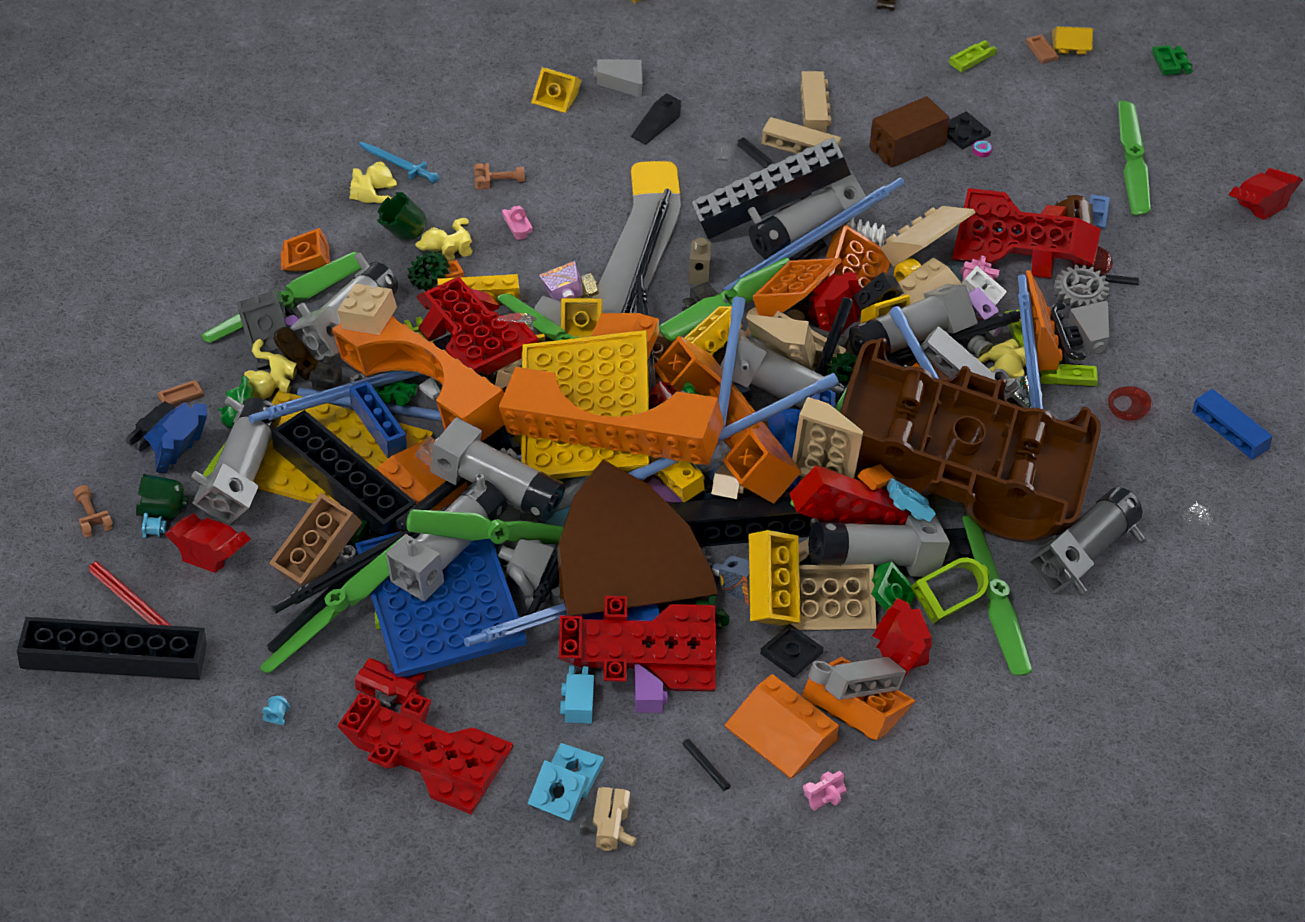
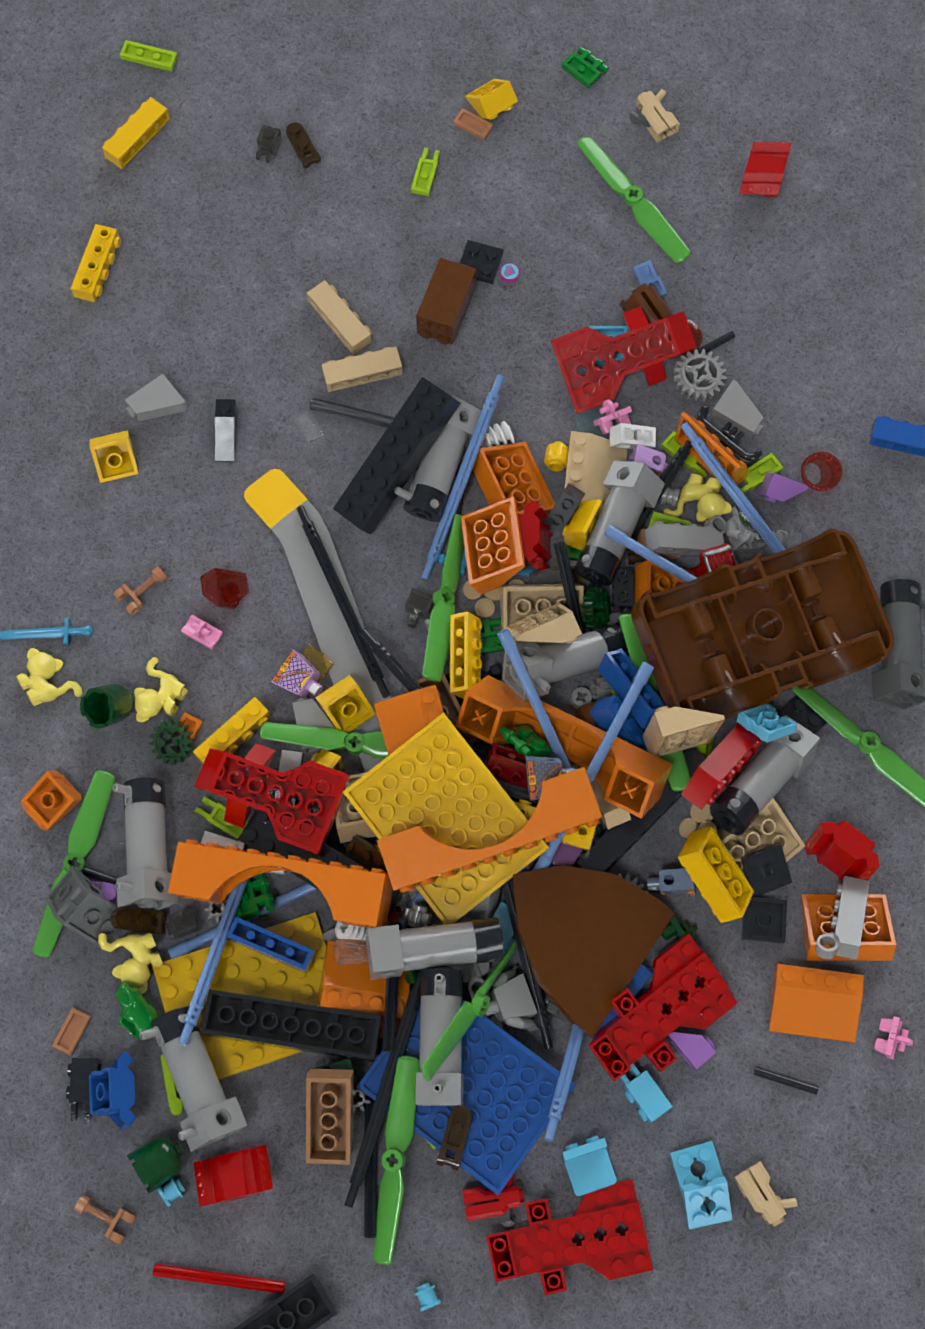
camera: 35 degrees left, 25 degrees up
(367, 309) = (189, 858): tan piece -> none
(397, 612) = (455, 1137): none -> dark brown plate
(488, 708) = (588, 1166): none -> medium azure bracket
(519, 317) = (316, 767): clear bar -> none
(563, 205) = (224, 587): none -> clear red slope
(699, 254) = (387, 567): dark tan torso -> none
(824, 616) = (766, 869): none -> black plate
(875, 477) = (730, 727): orange tile -> none
(891, 585) = (801, 807): green plate -> none
(923, 232) = (548, 408): tan slope -> none
(929, 601) = (860, 760): lime window -> none
(1081, 390) = (780, 488): none -> medium lavender slope
(1201, 115) = (654, 115): none -> tan piece

